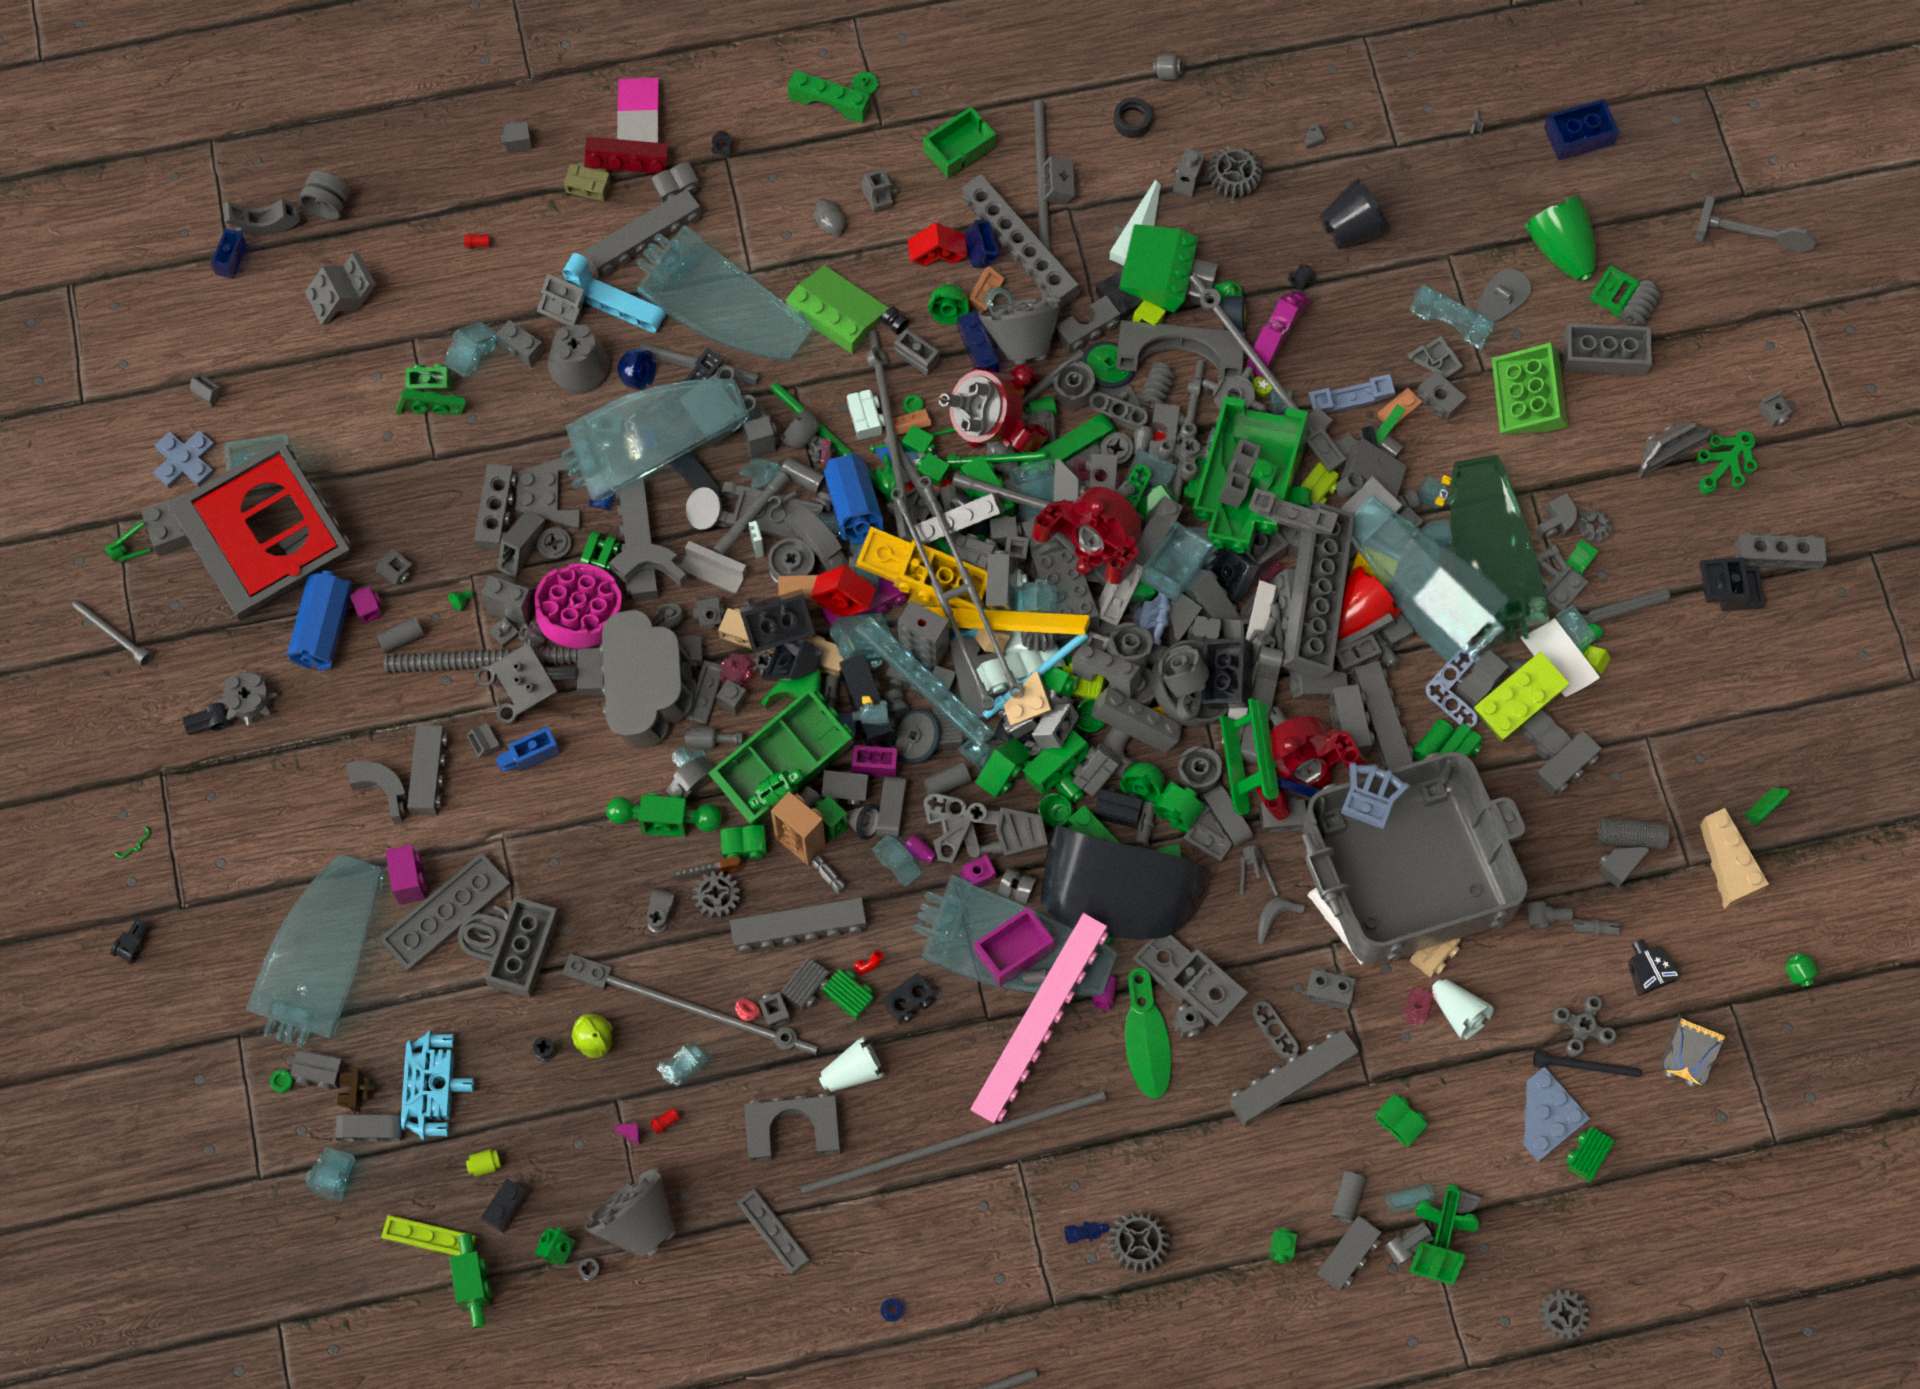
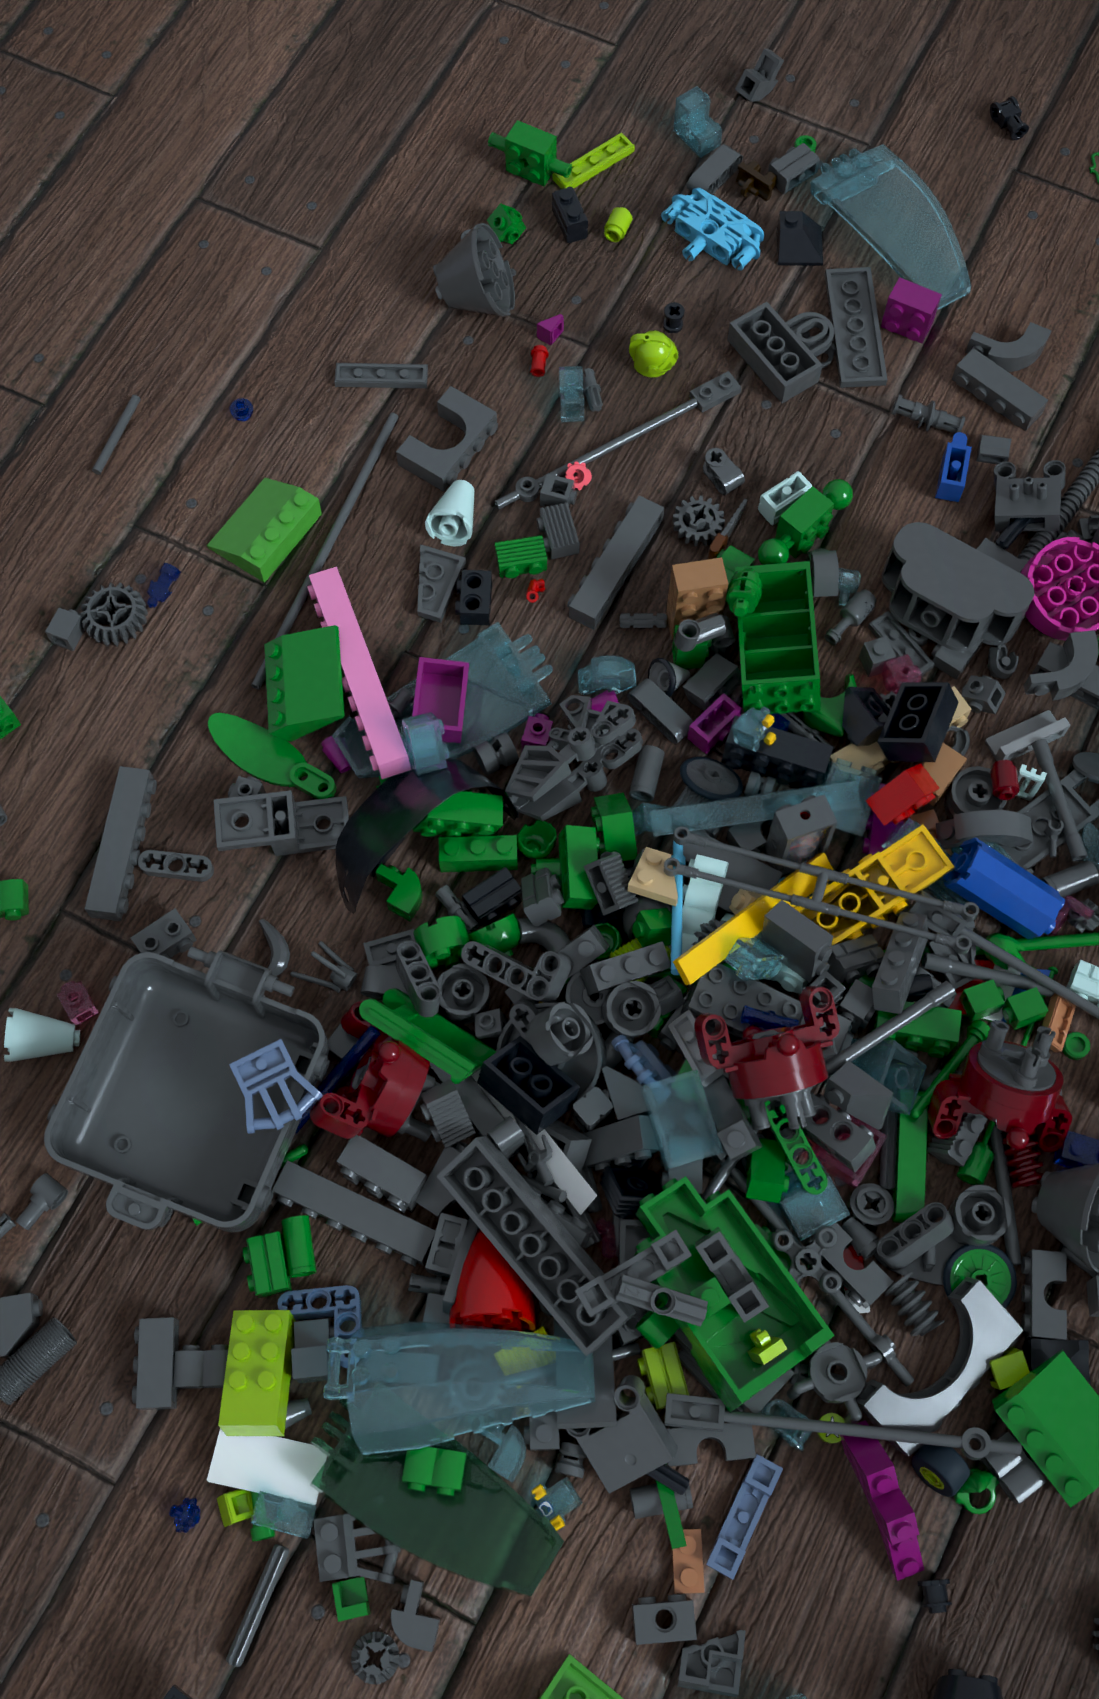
camera: 130 degrees right, 0 degrees up
(239, 1163) = (761, 80): none -> dark grey brick
(391, 1013) = (799, 240): none -> black slope
(492, 801) = (927, 414): none -> dark grey piece
(650, 846) = (782, 496): none -> light aqua brick
(665, 1053) = (592, 390): none -> dark grey axle
(774, 545) = (1004, 780): none -> dark red brick
(826, 801) = (699, 630): none -> dark grey piece
(917, 1037) = (437, 581): none -> dark grey wing
(977, 1200) = (266, 527): none -> bright green slope
(1064, 911) = (425, 743): none -> clear light blue brick
(1067, 562) = (764, 1019): none -> clear blue pin
(1078, 1048) = (303, 682): none -> green slope
(1161, 737) = (512, 968): none -> dark grey beam
(1178, 1265) = (65, 628): none -> dark grey brick
(1206, 734) = (490, 1024): none -> dark grey bracket
(1217, 785) = (412, 965): none -> dark grey beam
(1259, 433) = (765, 1347): none -> lime tile
(1289, 700) = (447, 1113): none -> dark grey brick
(1294, 486) = (679, 1305): none -> dark grey piece
(1479, 556) = (435, 1469): none -> green brick
(1624, 678) = (185, 1515): none -> clear blue plant

